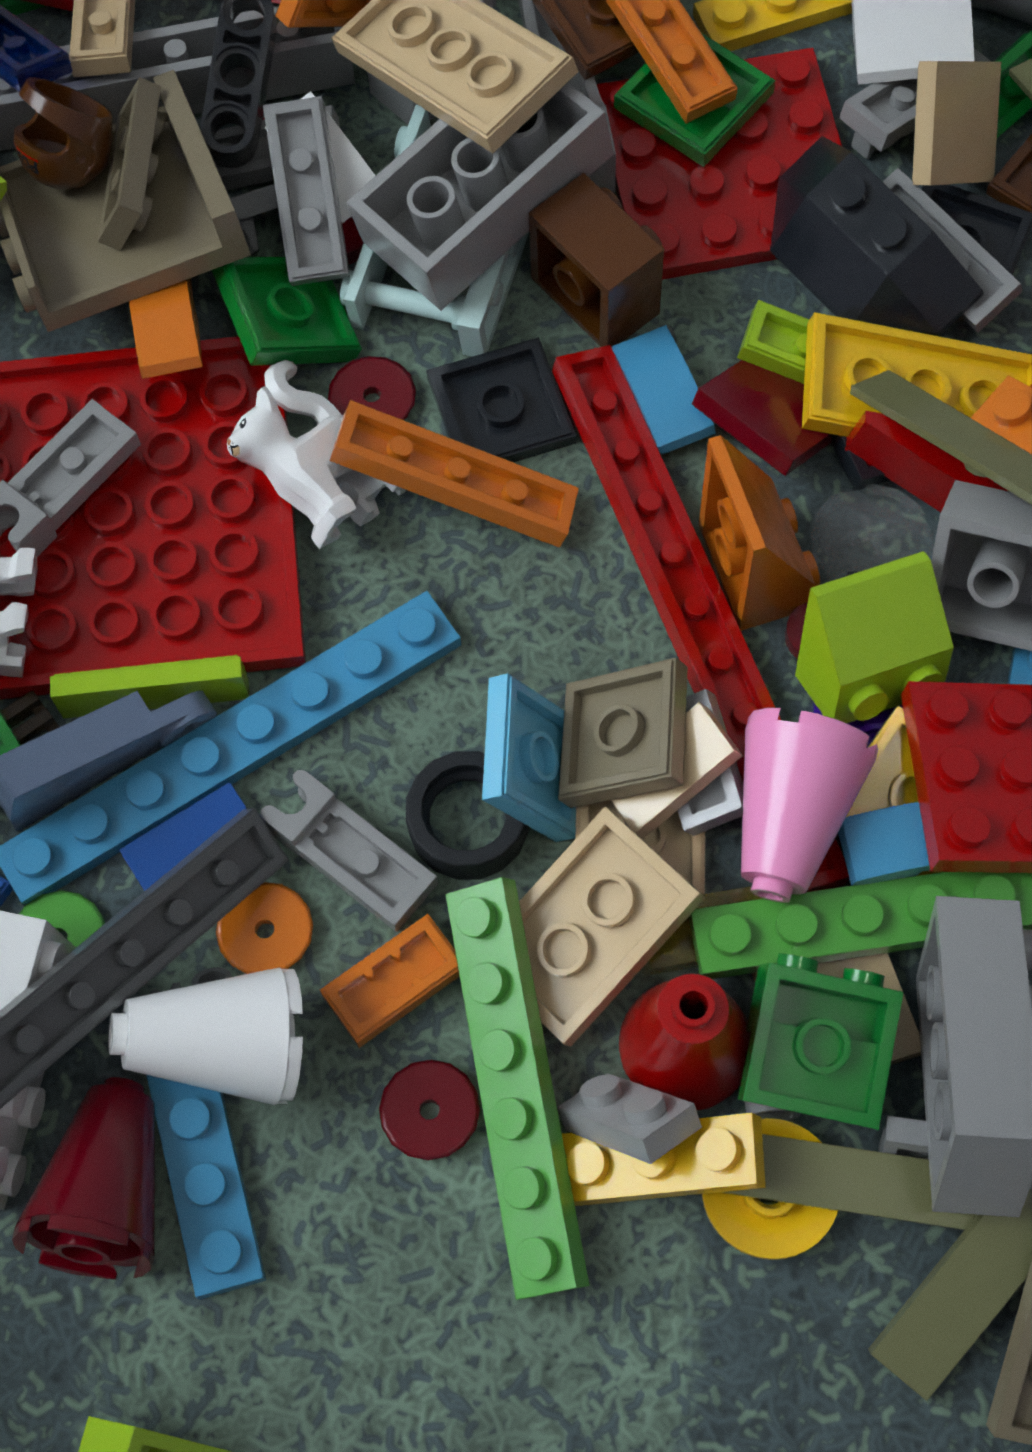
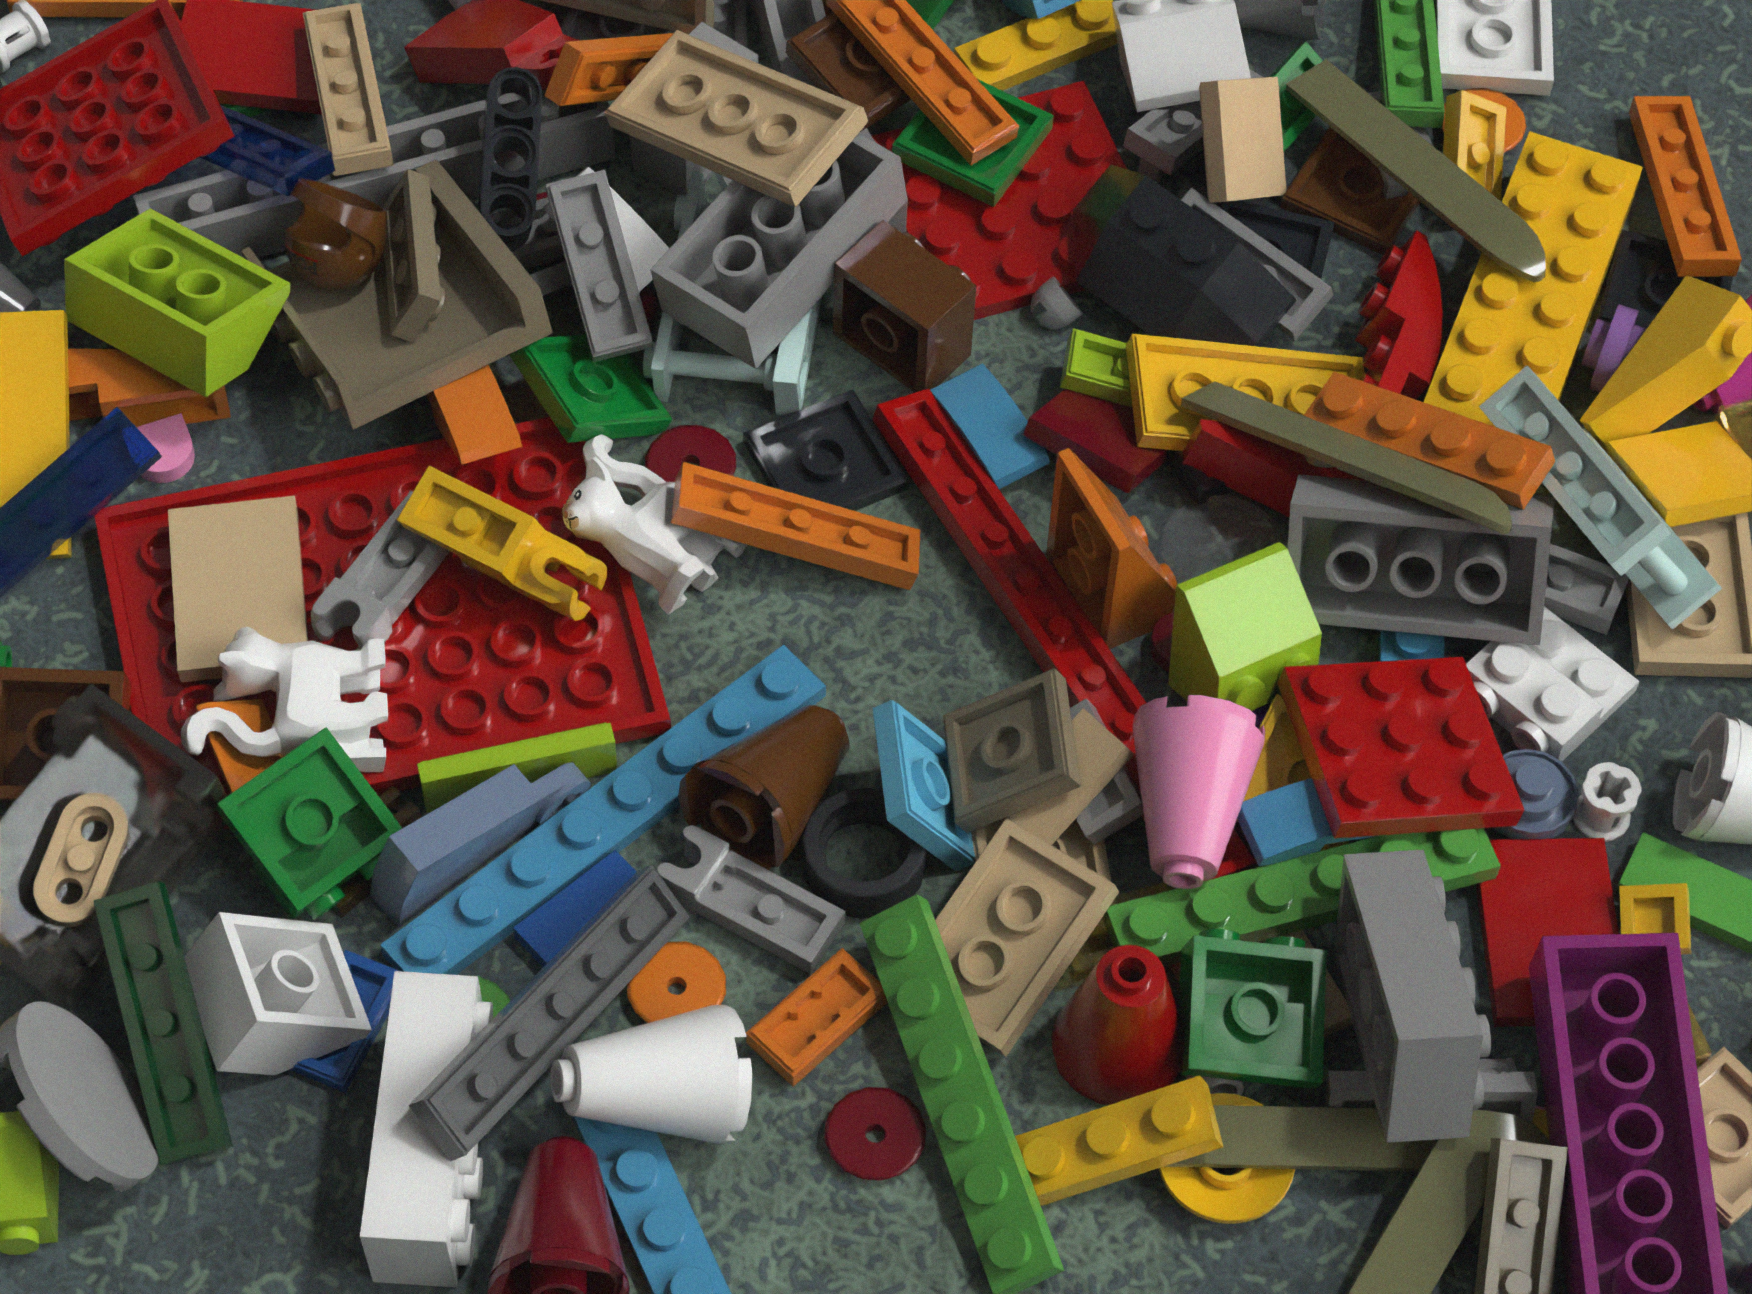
camera: 15 degrees left, 10 degrees down
(161, 461) = (500, 541): none -> yellow plate
(384, 735) = (766, 784): none -> reddish brown cone
(629, 1117) = (1078, 1102): light grey plate -> none
(751, 272) = (1059, 305): none -> light grey hinge

